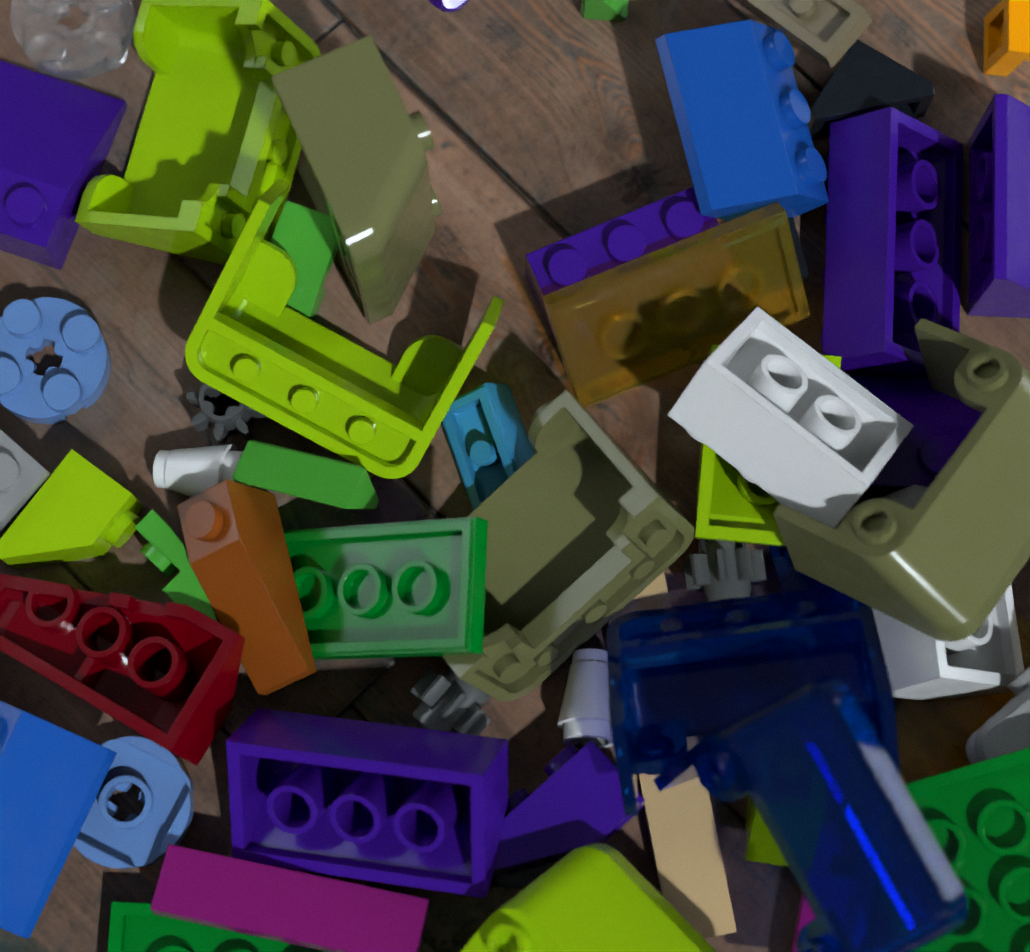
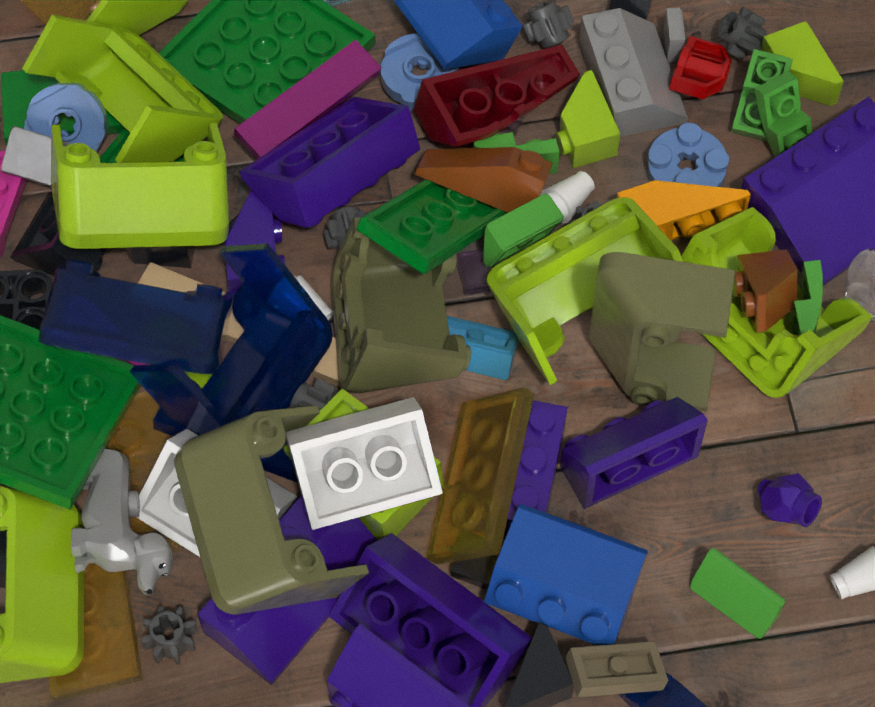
camera: 125 degrees right, 15 degrees down
(138, 325) = (686, 208): none -> light orange slope
(187, 135) = (766, 286): none -> dark orange slope
(196, 67) = (807, 311): none -> bright green slope
(517, 156) = (633, 450): none -> dark purple slope

